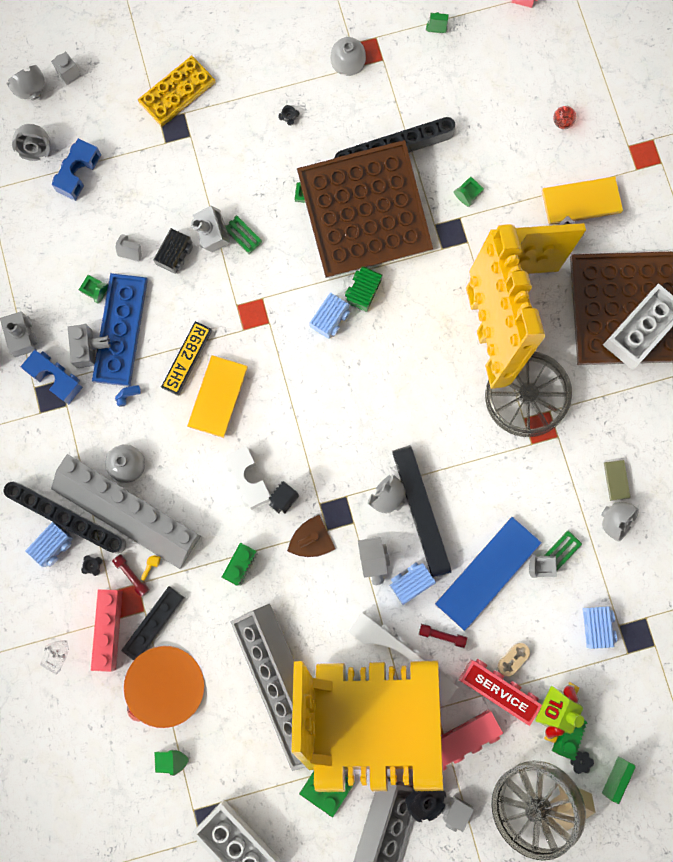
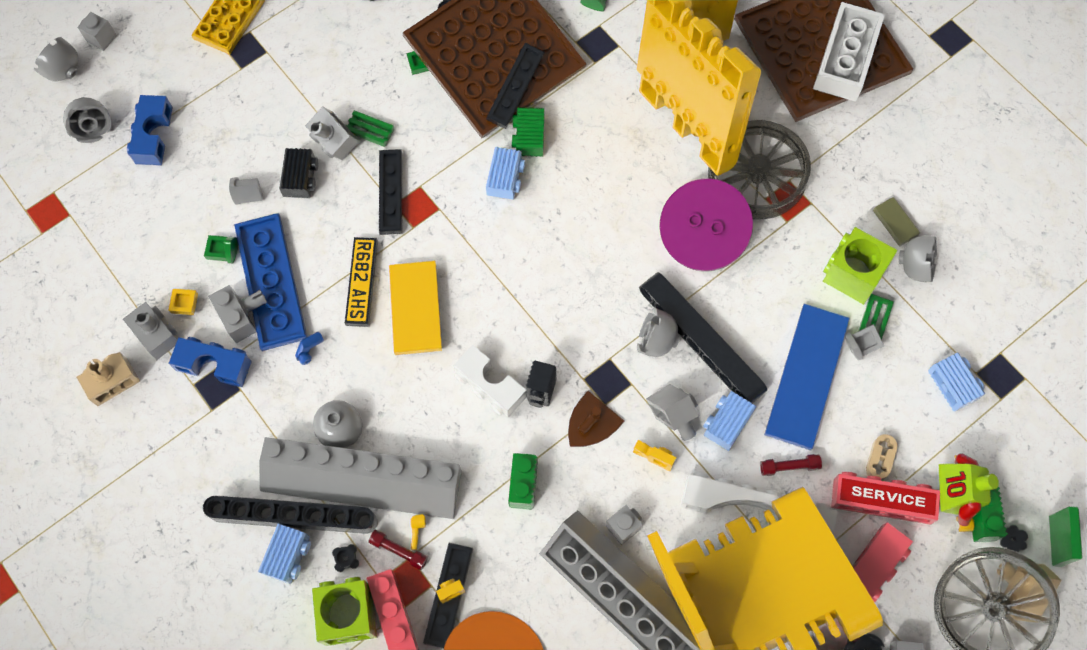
camera: 25 degrees left, 10 degrees down
(49, 320) = (183, 301): none -> yellow plate
(56, 612) = (323, 599): none -> lime brick
(153, 622) = (450, 590): none -> yellow plate
(237, 294) = (390, 192): none -> black tile
(299, 628) = (624, 524): none -> light grey brick
(350, 589) = (660, 457): none -> yellow plate
(368, 246) = (515, 86): none -> black tile
(465, 423) = (706, 225): none -> magenta plate
(584, 509) = (869, 250): none -> lime brick

